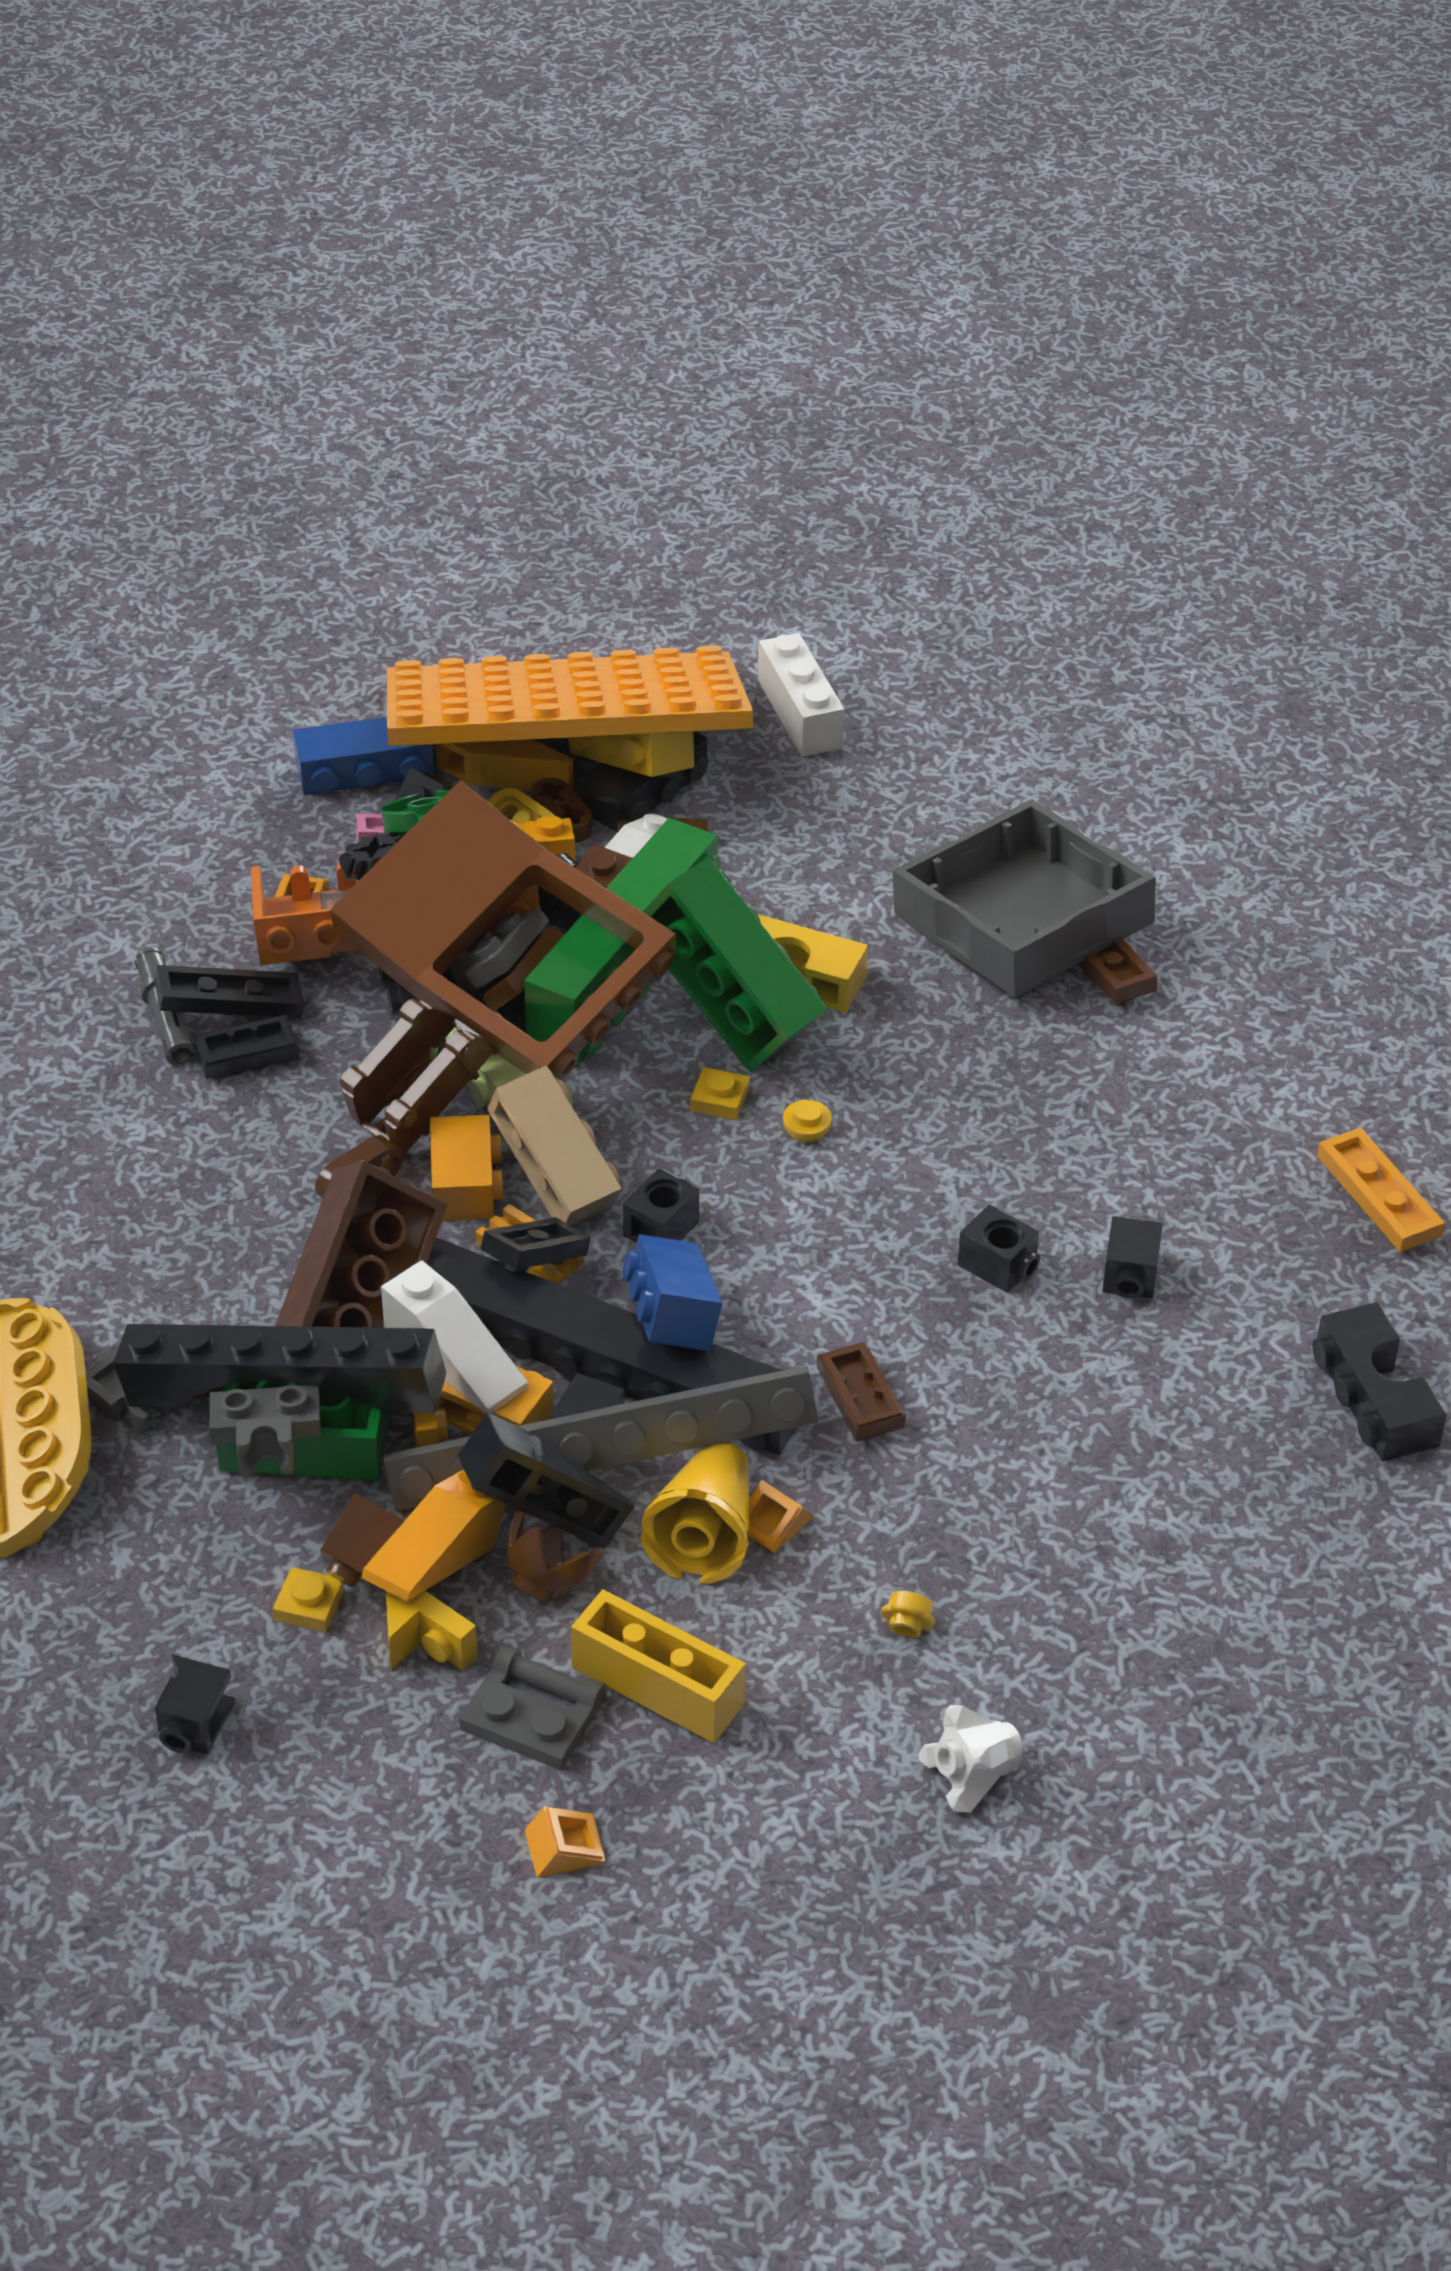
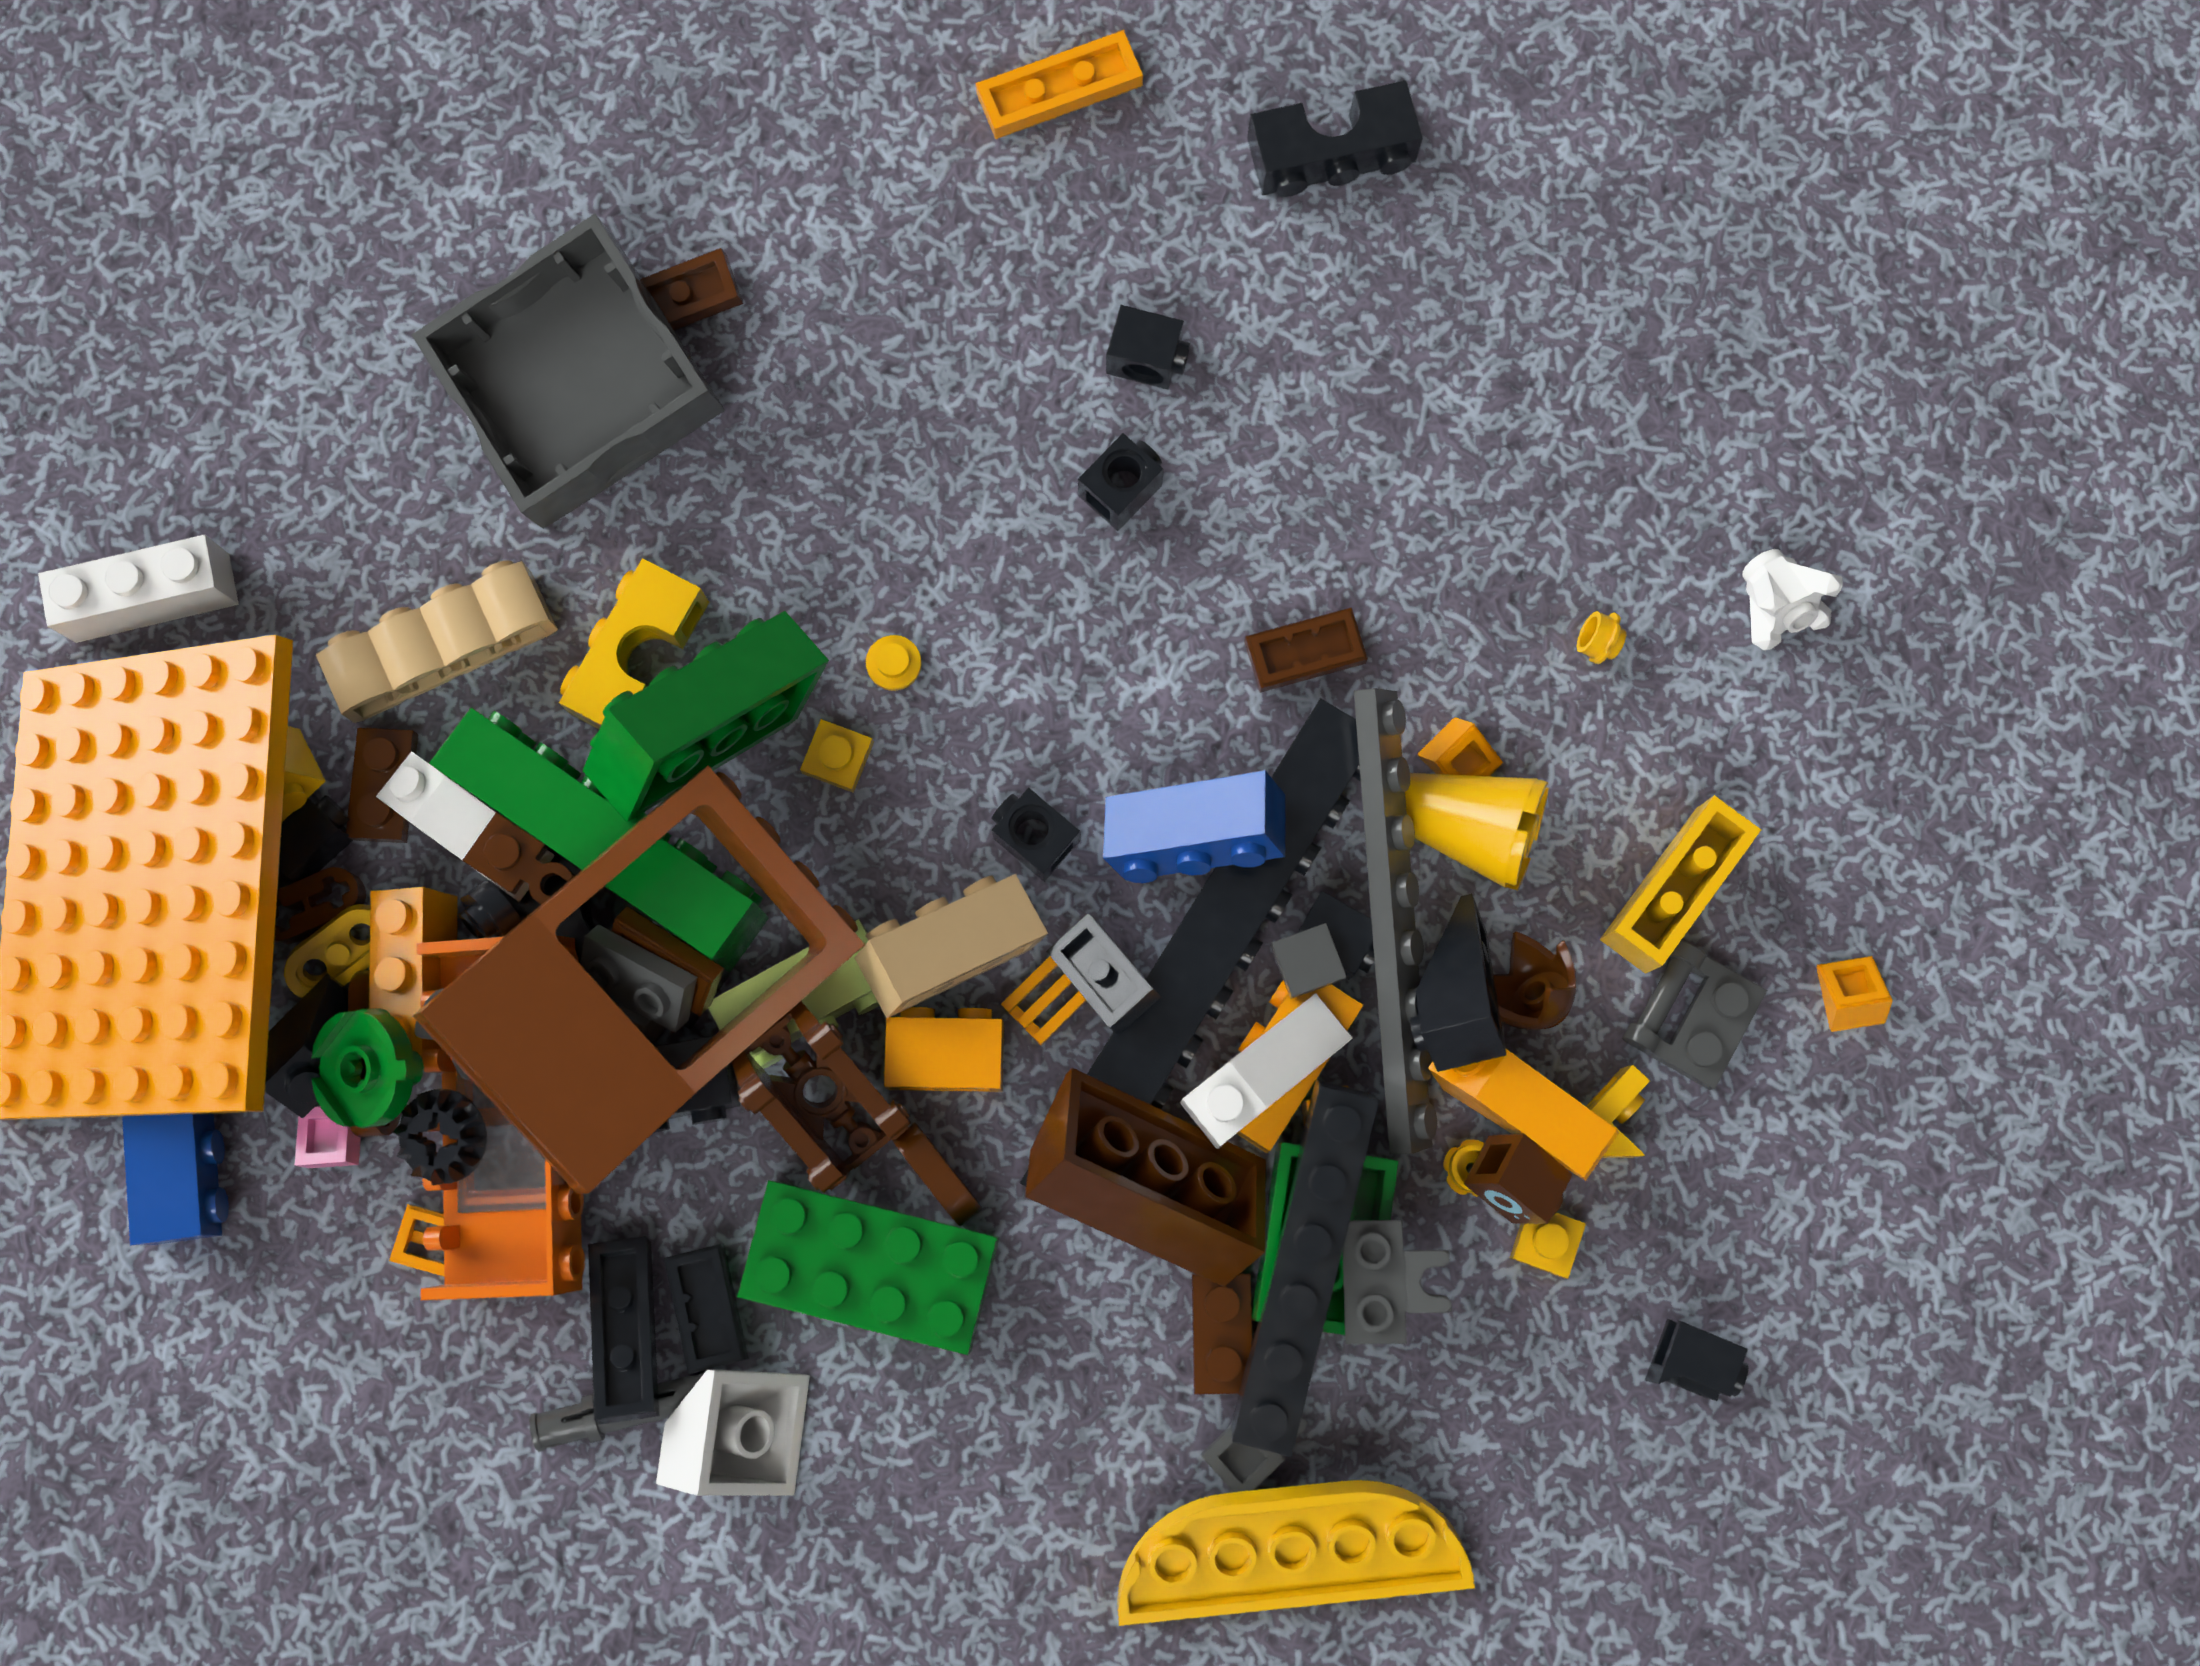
camera: 85 degrees left, 35 degrees up
(144, 1067) = (736, 1435): none -> white slope
(278, 1133) = (868, 1267): none -> green brick
(556, 1374) = (1308, 961): none -> dark grey tile
(785, 852) = (435, 642): none -> tan brick

